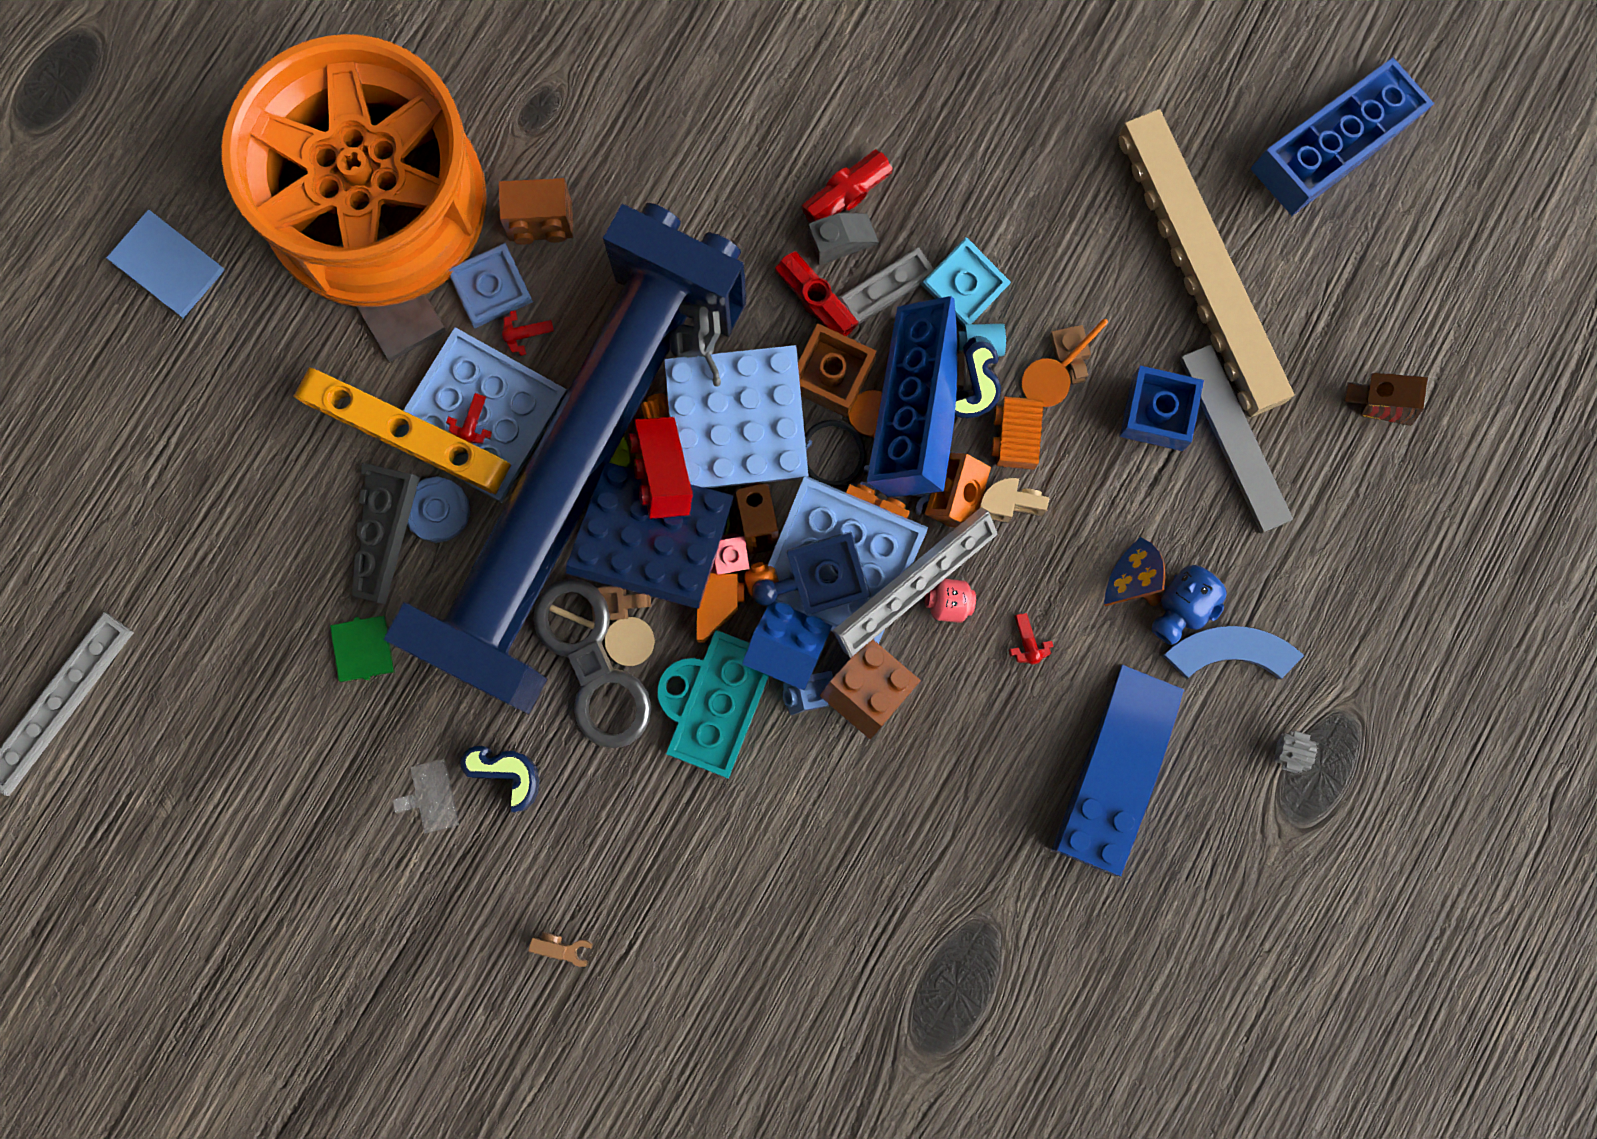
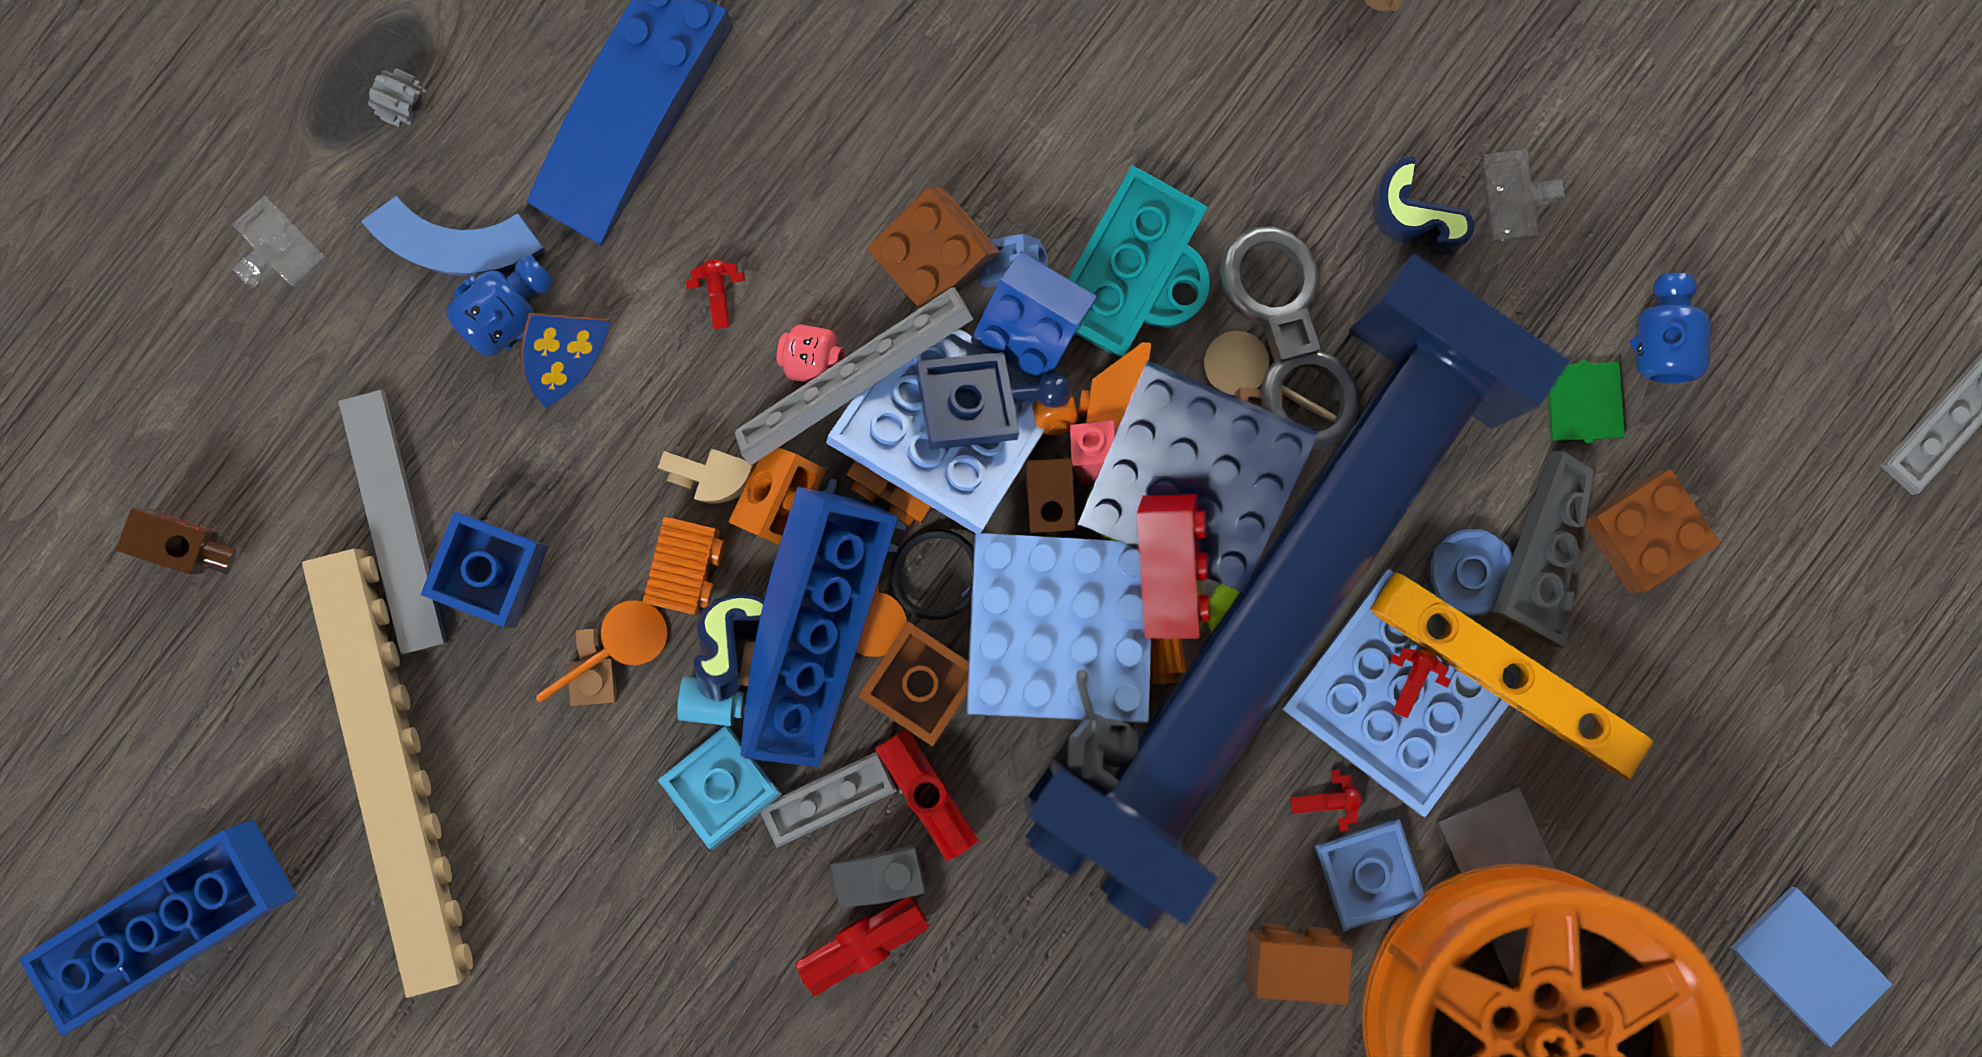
camera: 170 degrees left, 5 degrees up
(300, 700) = (1674, 335): none -> blue piece
(305, 553) = (1651, 531): none -> dark orange brick
(1362, 627) = (276, 245): none -> clear plate

